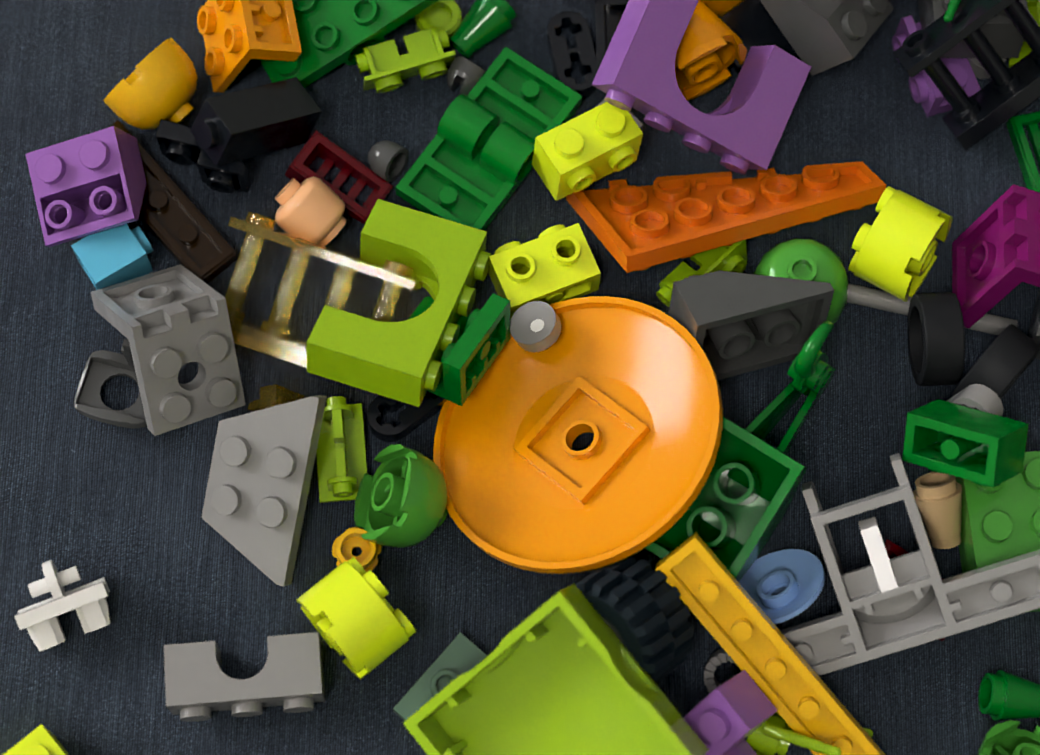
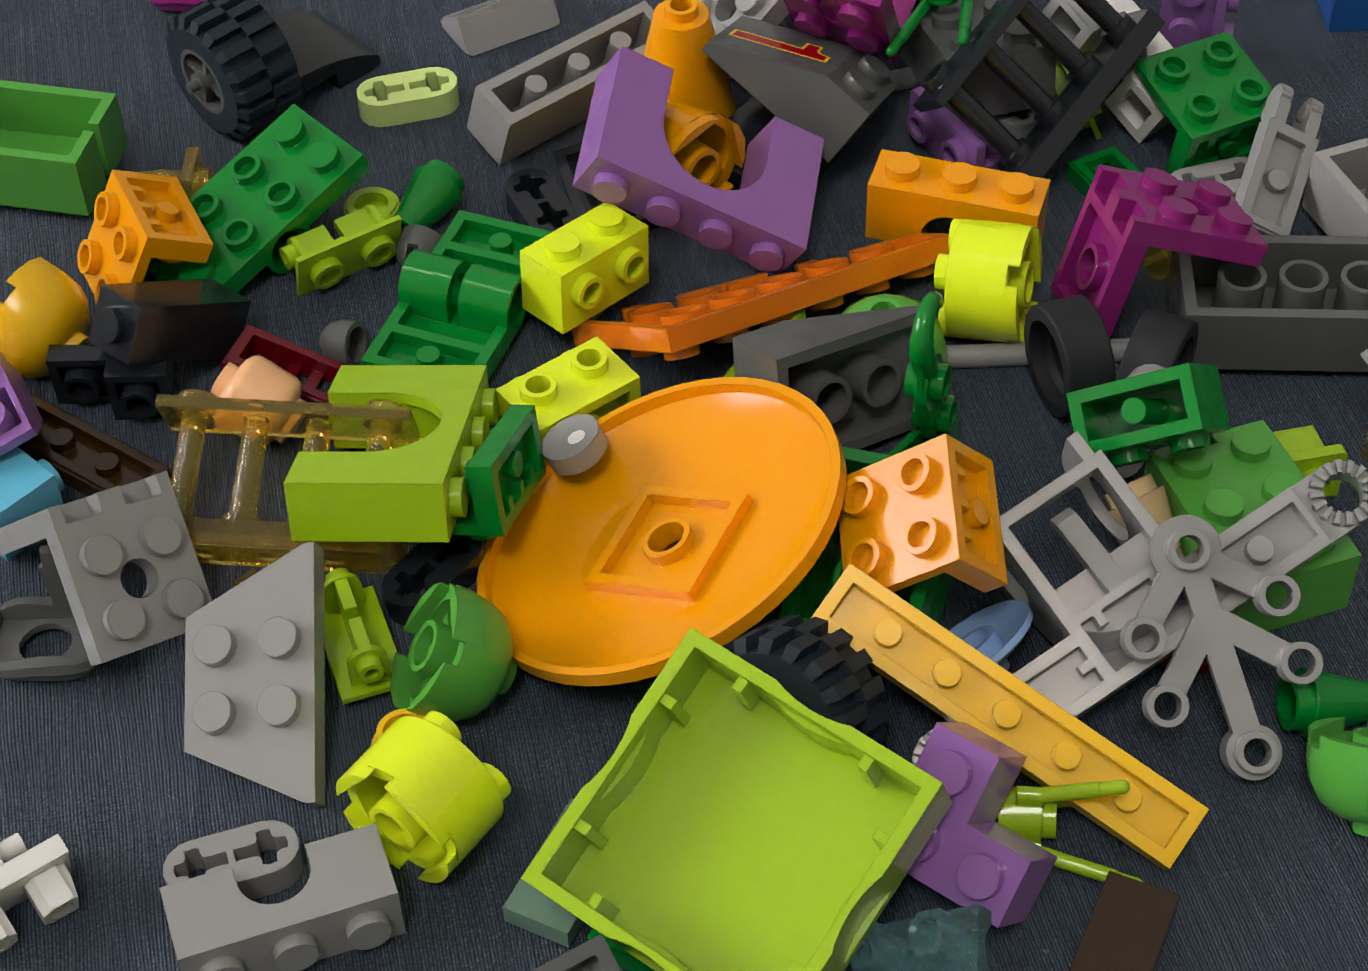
camera: 10 degrees left, 25 degrees down
(218, 609) = (242, 850): none -> light grey beam
(761, 510) = (925, 517): none -> light orange bracket
(929, 161) = (914, 189): none -> light orange arch
(944, 647) = (1214, 635): none -> light grey plant

